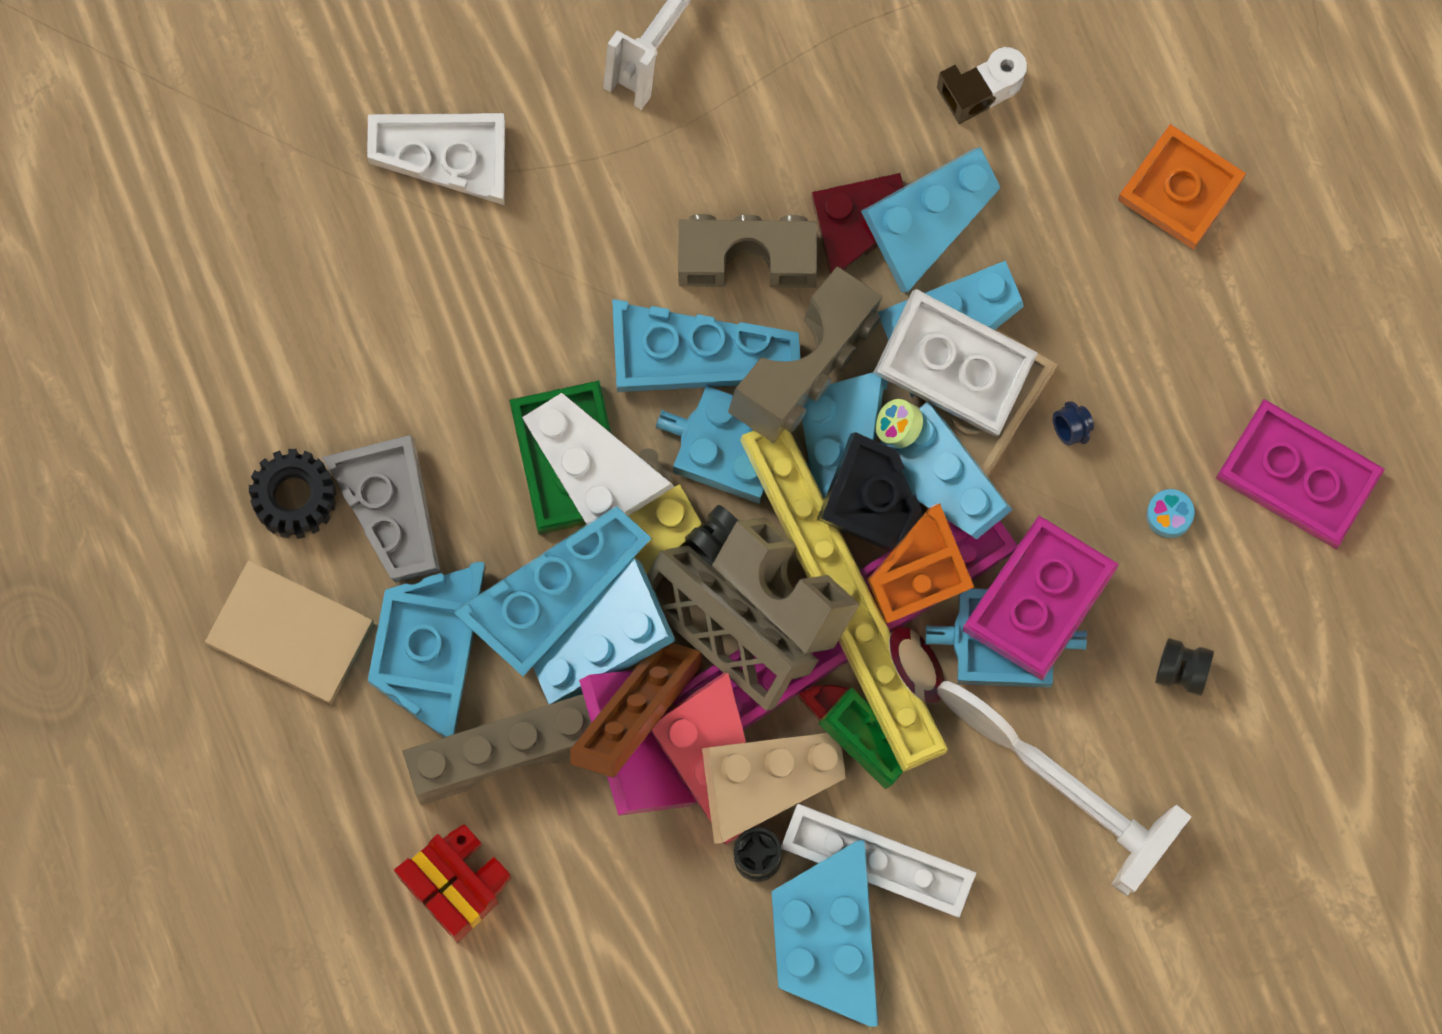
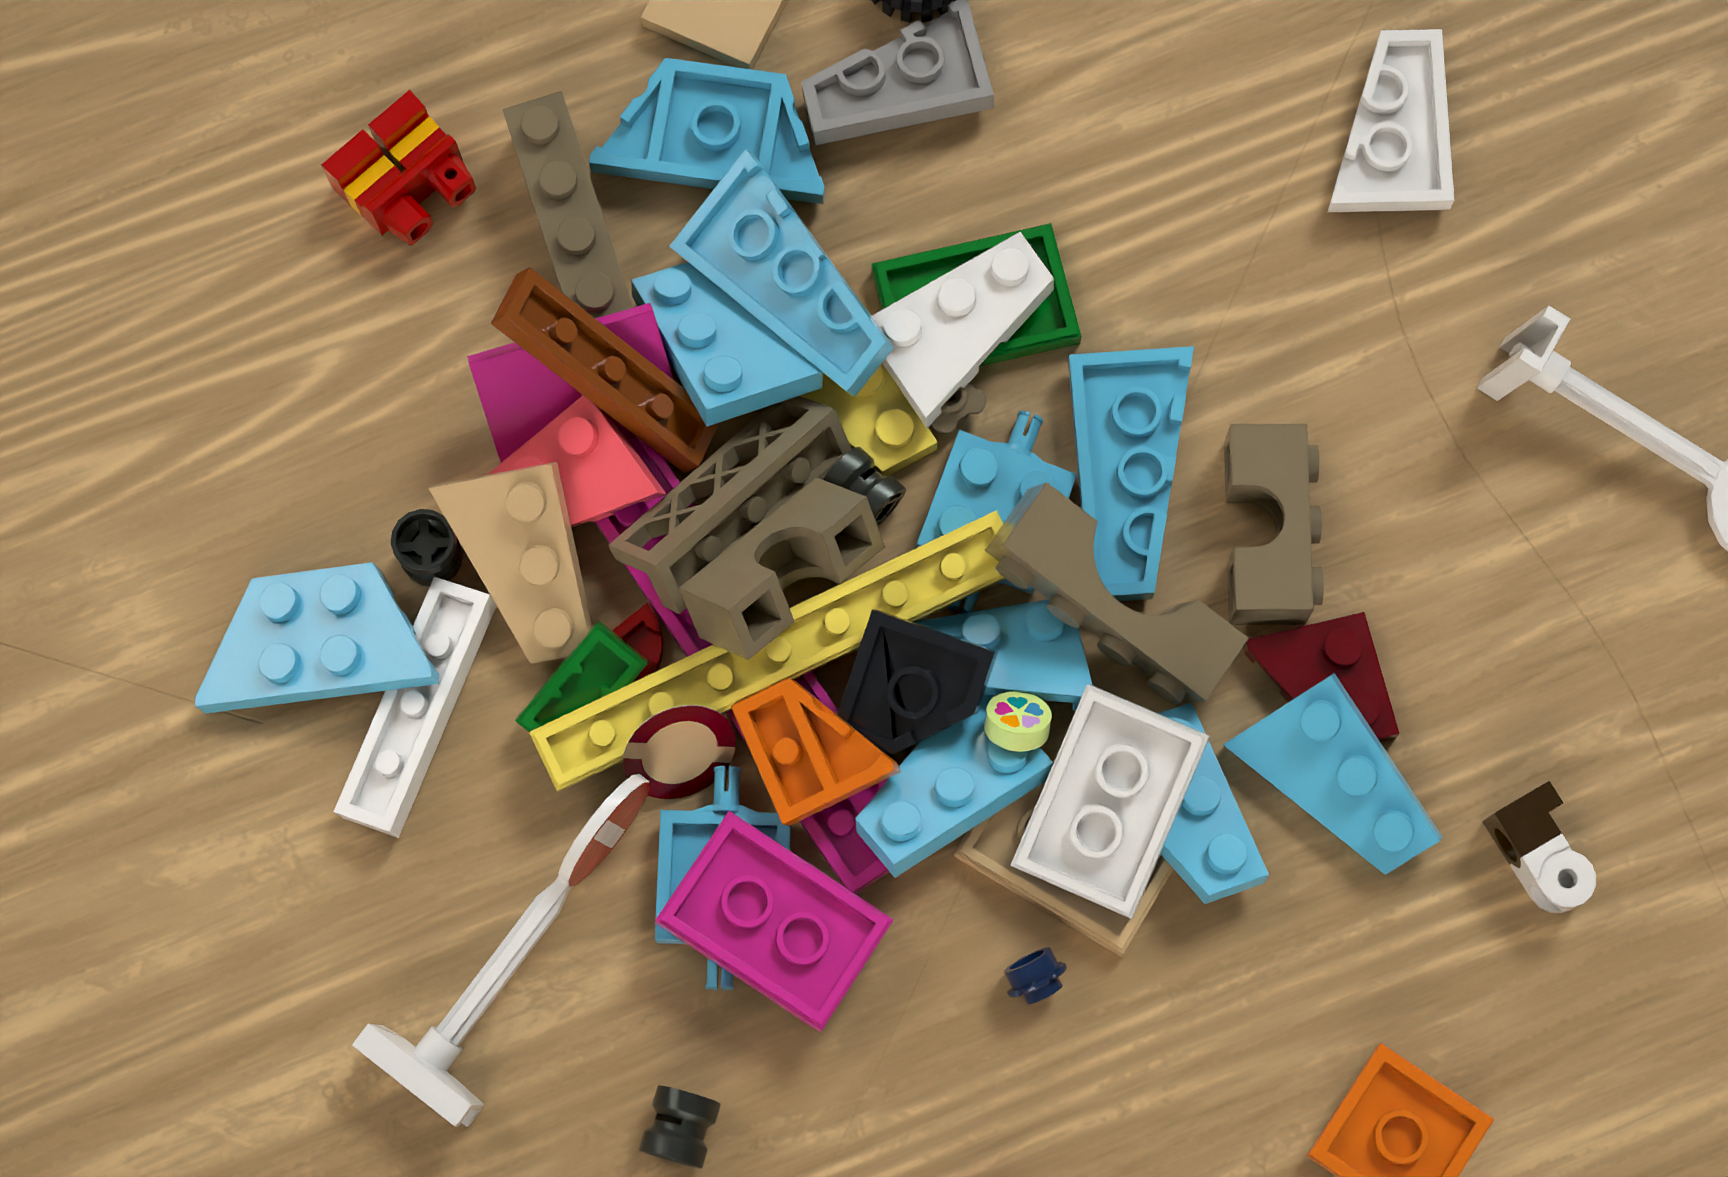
camera: 90 degrees right, 0 degrees up
(1170, 513) = (907, 1114): medium azure tile -> none

